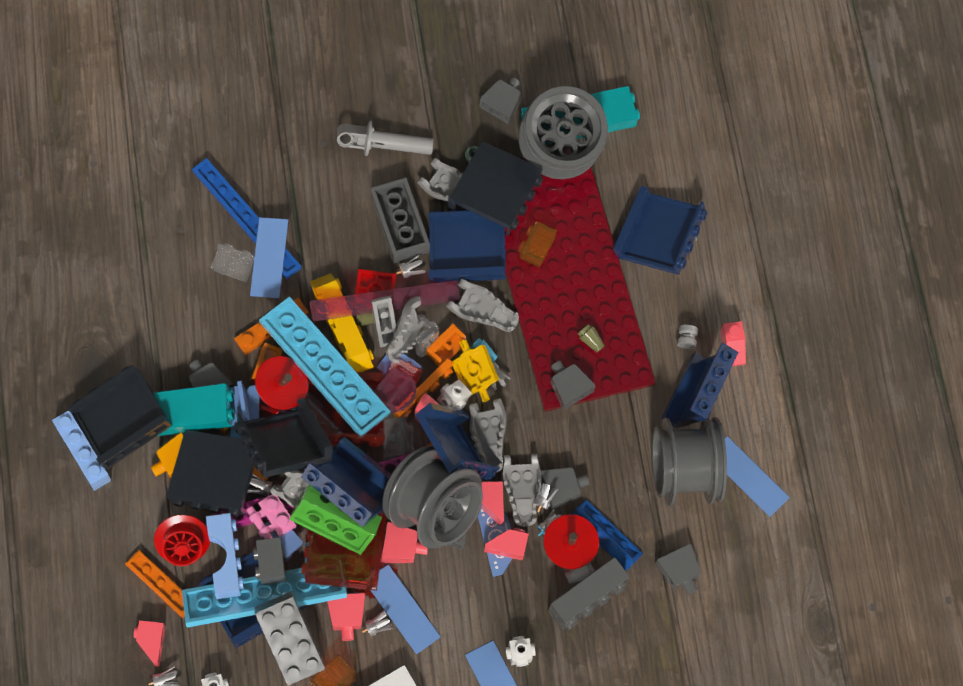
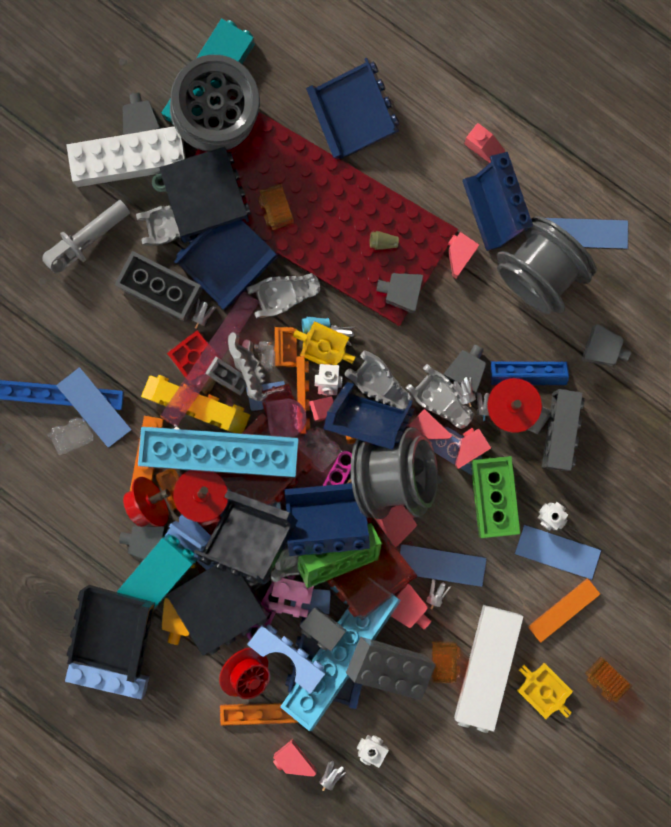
camera: 30 degrees left, 15 degrees up
(237, 355) = (146, 503): none -> red piece
(465, 113) = (124, 156): none -> white brick
(493, 607) = (507, 497): none -> bright green brick
(641, 401) = (460, 252): none -> coral slope
(687, 336) = (447, 171): light grey wheel -> none

